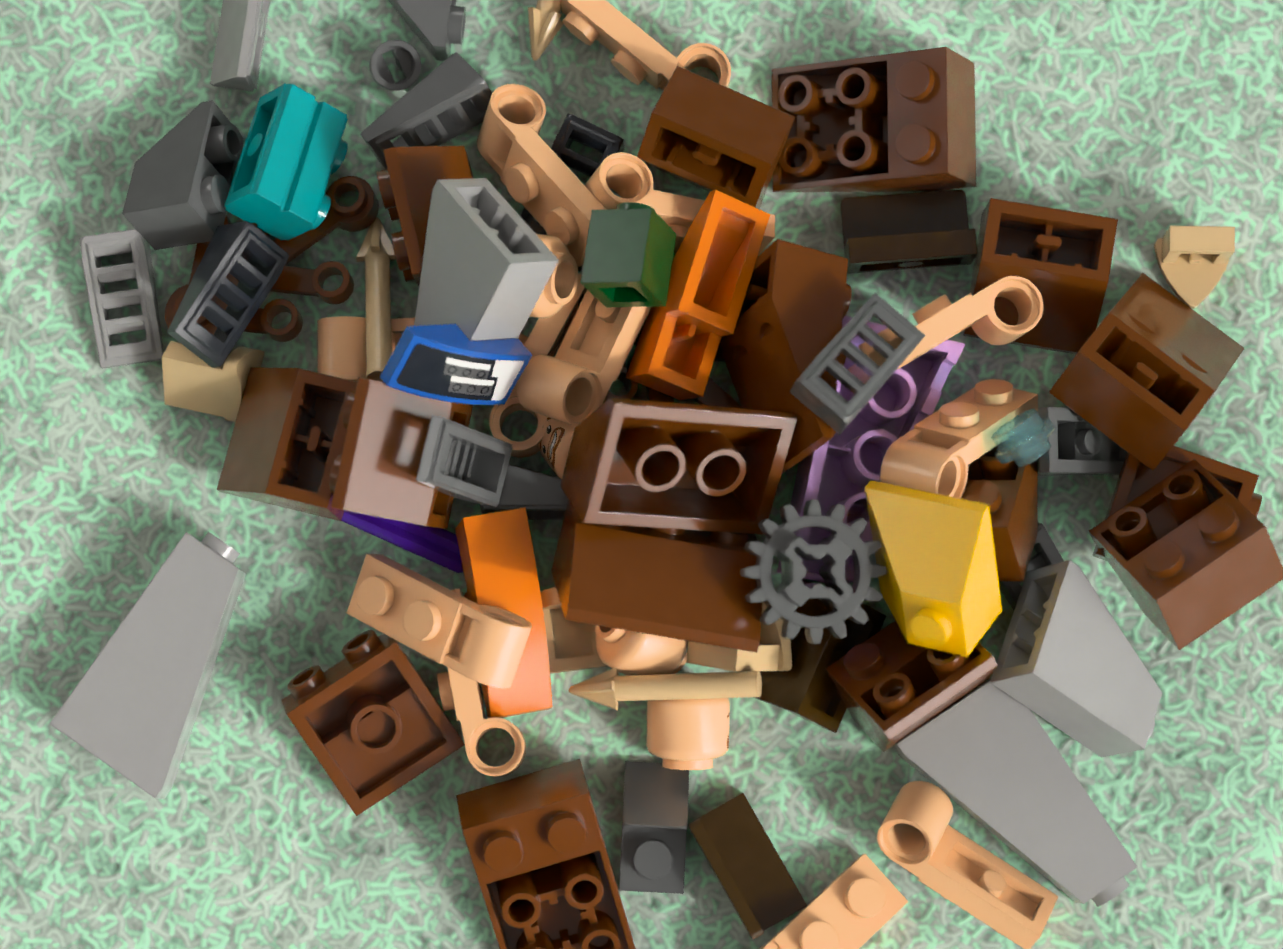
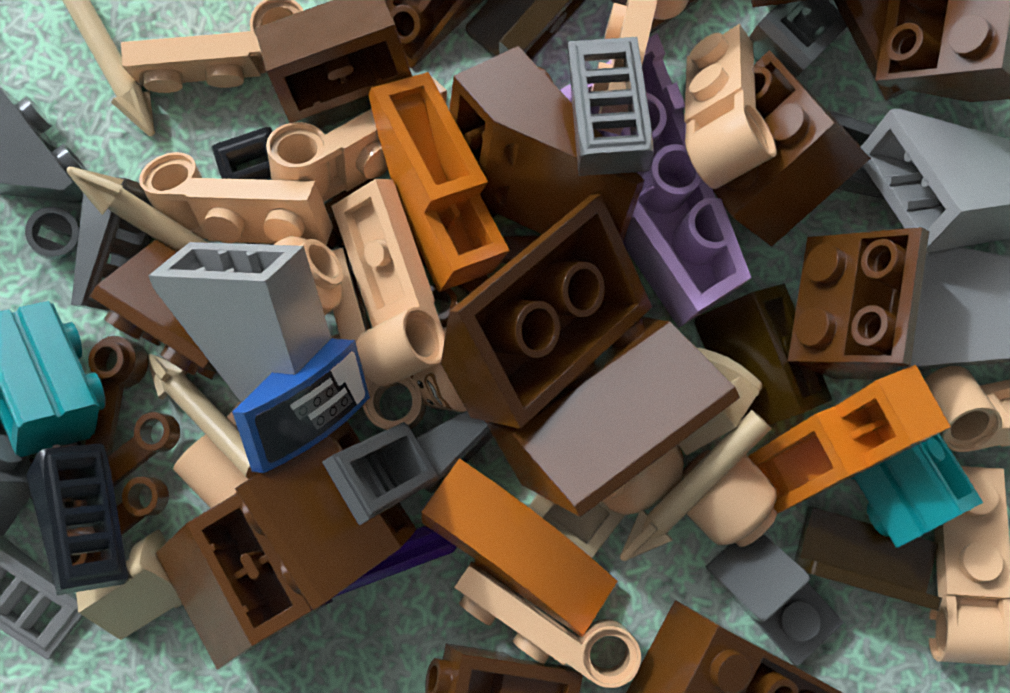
camera: 40 degrees left, 0 degrees up
(439, 623) = (482, 608): light nougat plate -> none
(461, 85) = (107, 193): none -> tan piece
(628, 256) = (354, 196): dark green brick -> none
(805, 757) = (851, 437): none -> orange slope
(830, 821) = (916, 491): none -> teal brick
(833, 551) = (741, 273): dark grey gear -> none
(937, 565) = (805, 205): yellow slope -> none
(1023, 438) = (773, 52): clear light blue plate -> none

